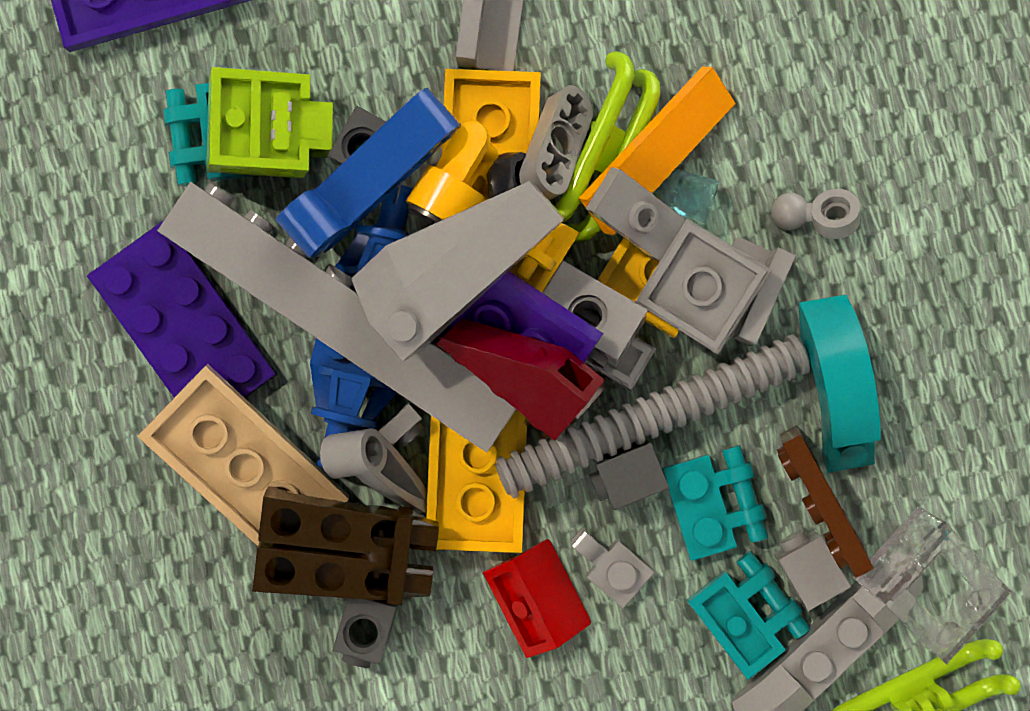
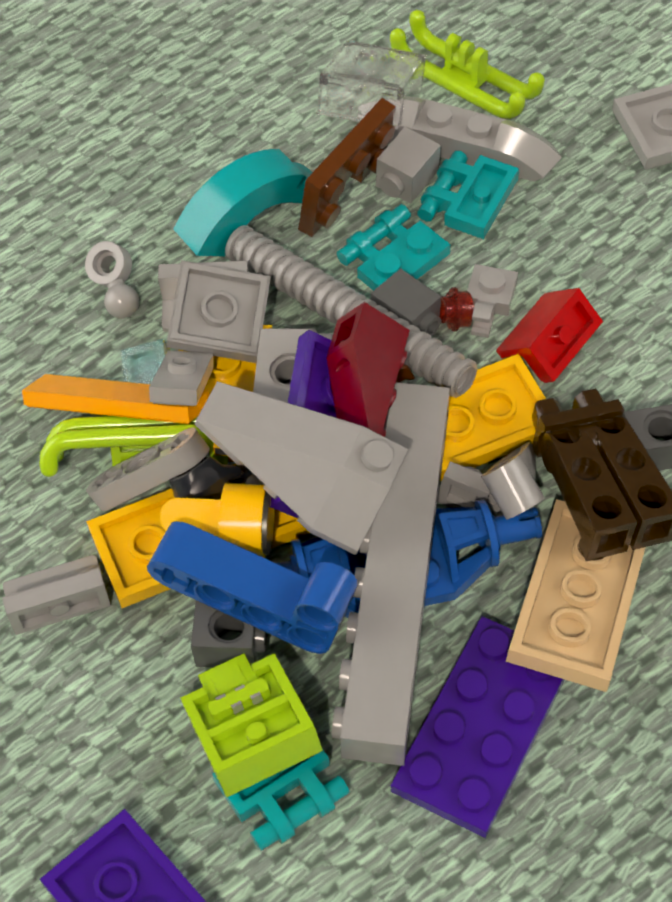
camera: 115 degrees left, 30 degrees down
(607, 524) = (456, 309): none -> clear red plate

